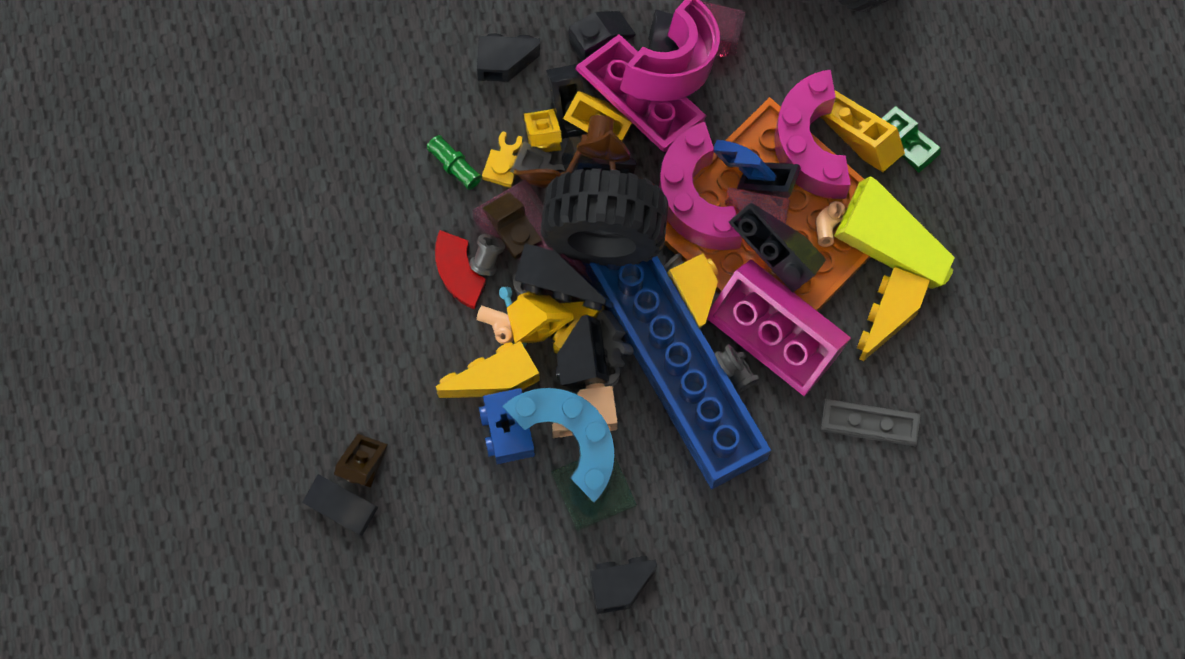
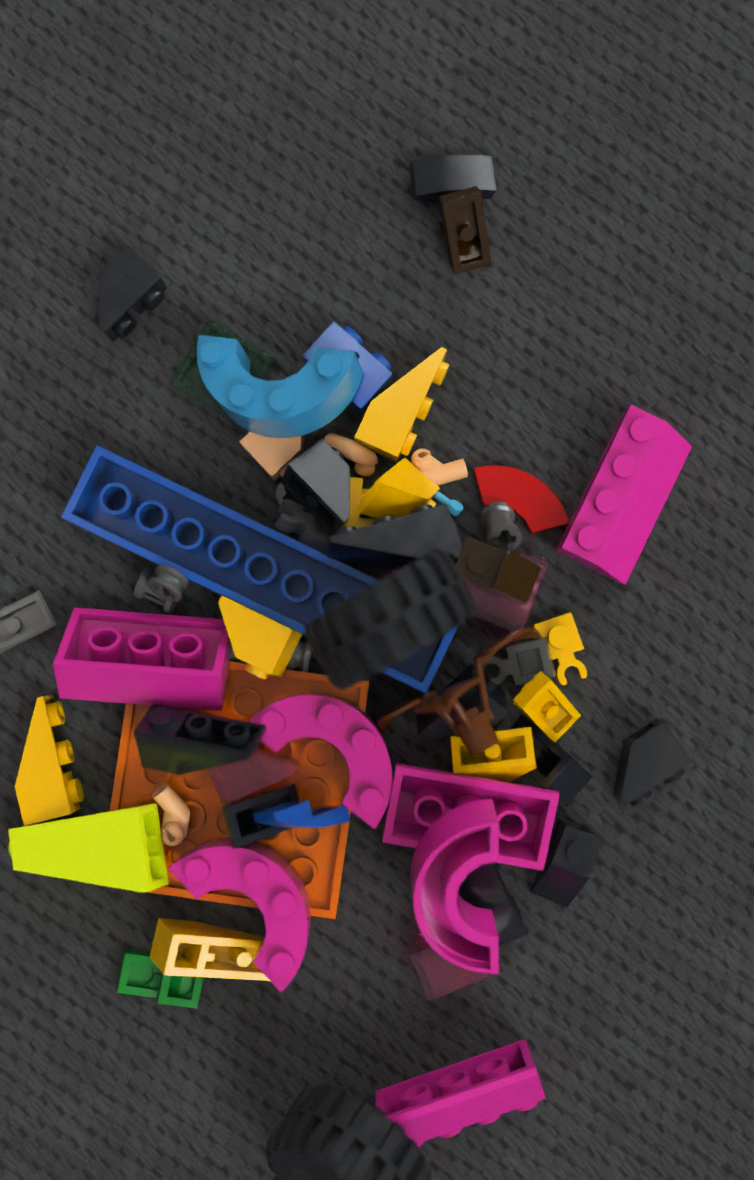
camera: 145 degrees right, 15 degrees up
(393, 223) = (625, 495): none -> dark pink slope
(454, 162) = (610, 606): green pin -> none
(543, 363) = (354, 451): none -> light nougat arm

